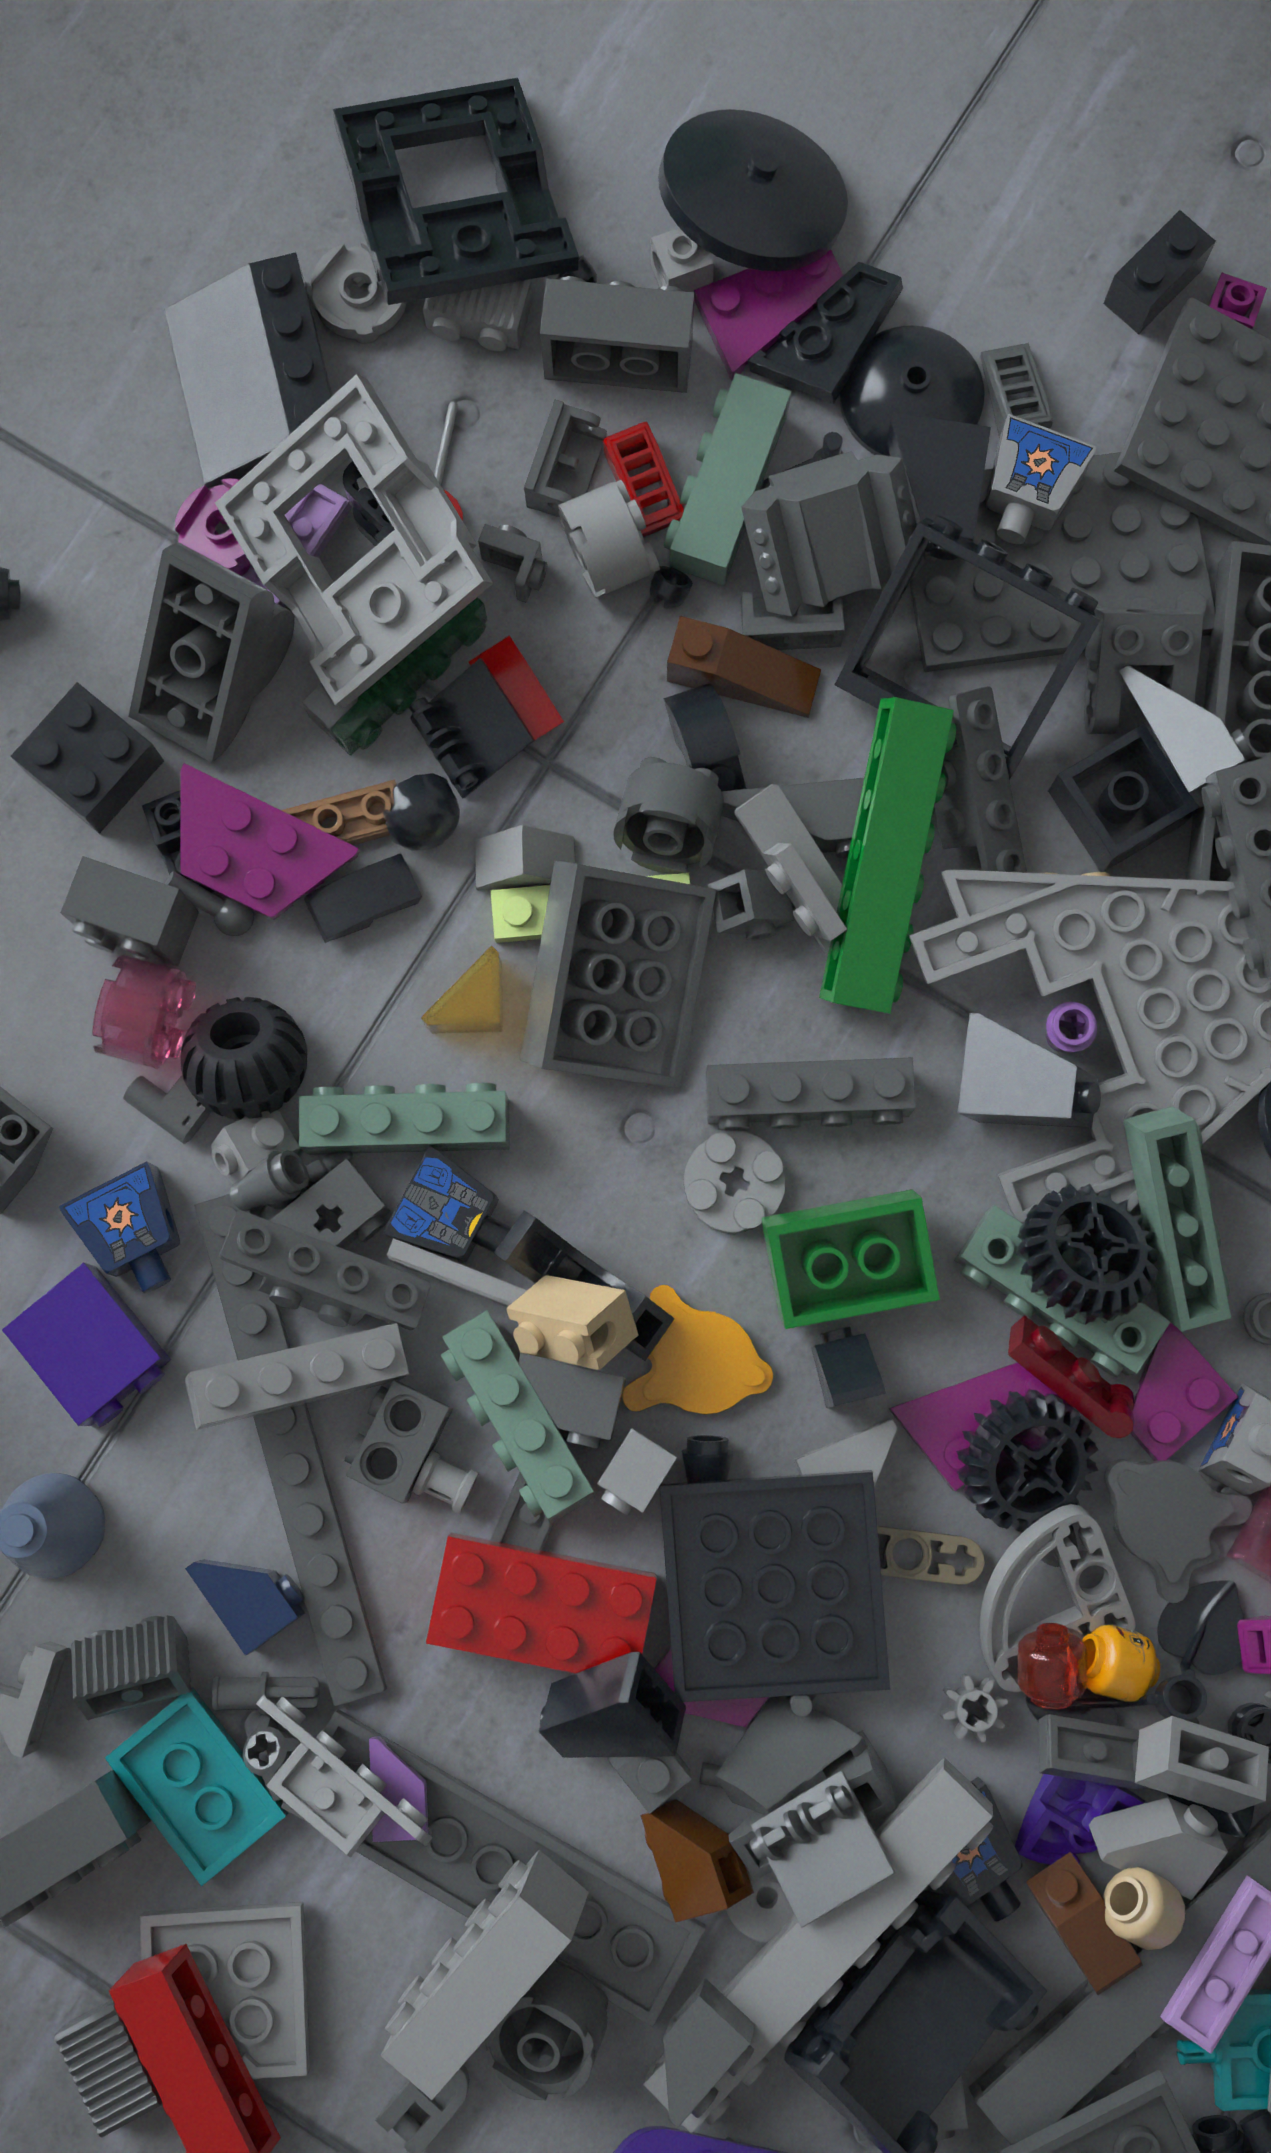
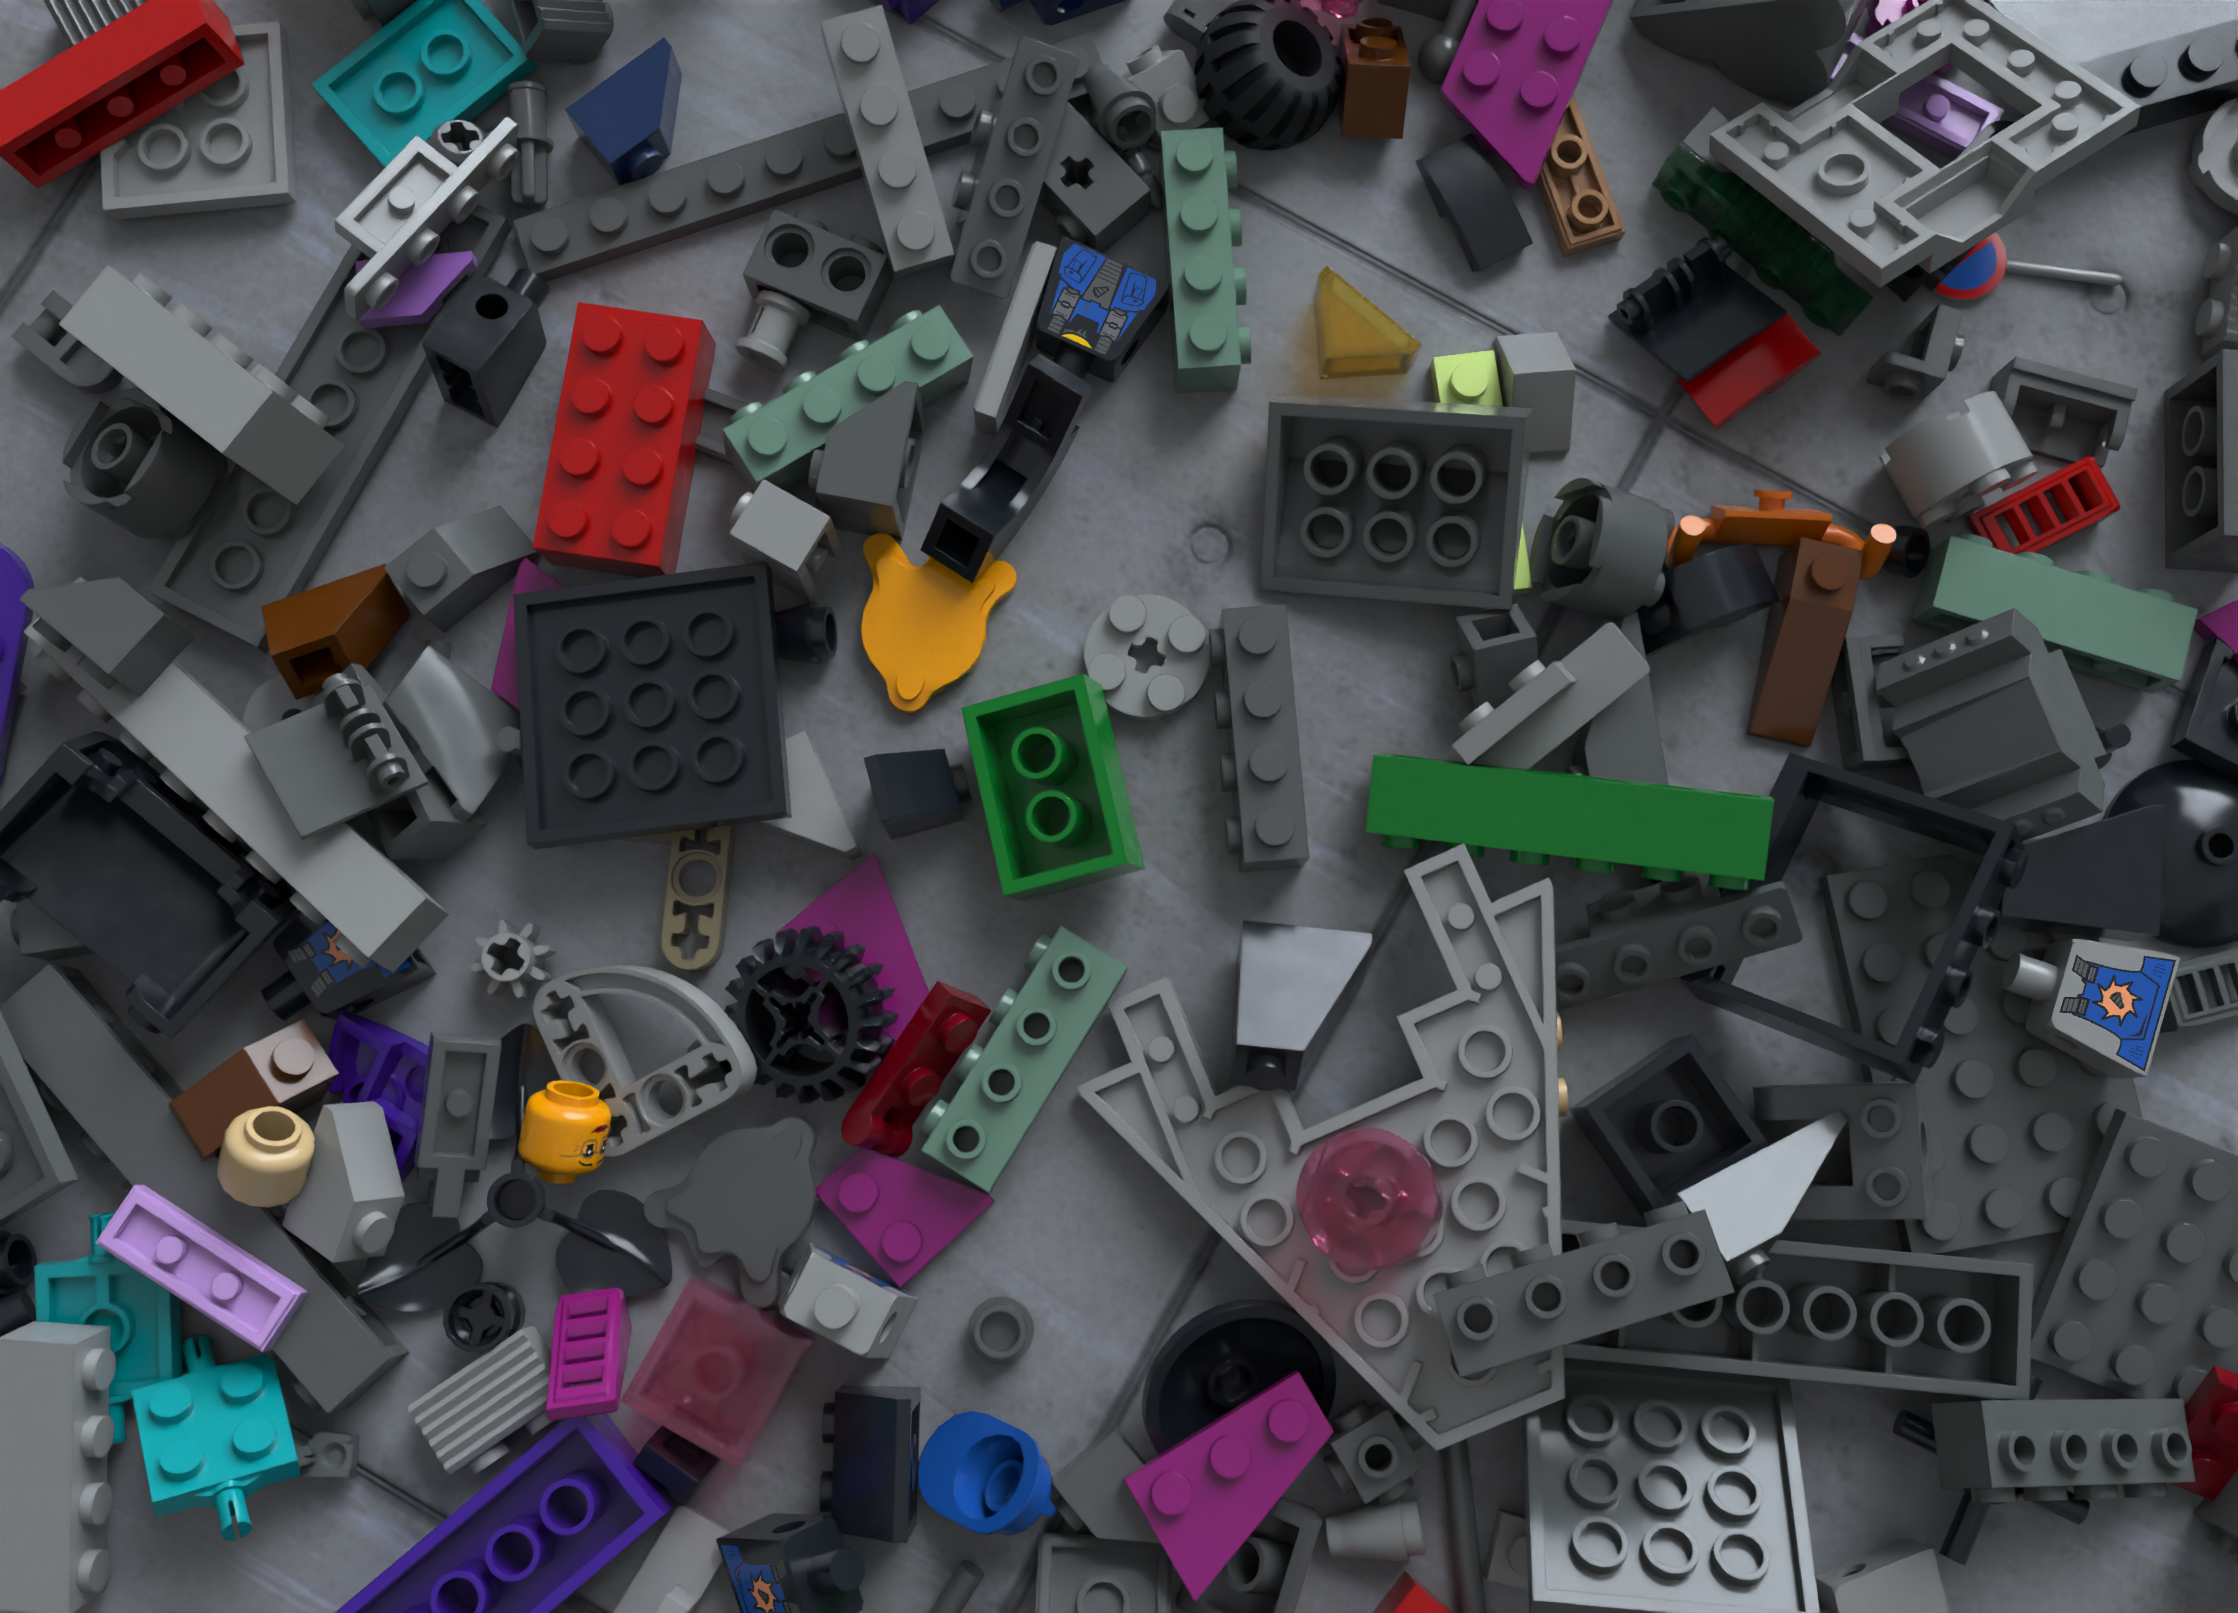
camera: 80 degrees right, 0 degrees up
(253, 970) = (1373, 79): none -> reddish brown slope
(422, 812) = (1585, 259): black hair -> none
(467, 1731) = (489, 344): none -> black torso
(572, 1322) = (957, 444): tan brick -> none
(613, 1712) = (498, 522): black slope -> none
(642, 682) = (1775, 526): none -> orange piece
(1052, 1666) = (558, 1046): clear red head -> none
(1074, 1265) = (1072, 1128): black gear -> none
(1077, 1020) = (1376, 1054): medium lavender cone -> none
(1177, 1207) = (1120, 1194): sand green brick -> none
(1202, 1764) = (436, 1228): light grey brick -> none
(1220, 1005) = (1336, 1219): none -> clear pink brick

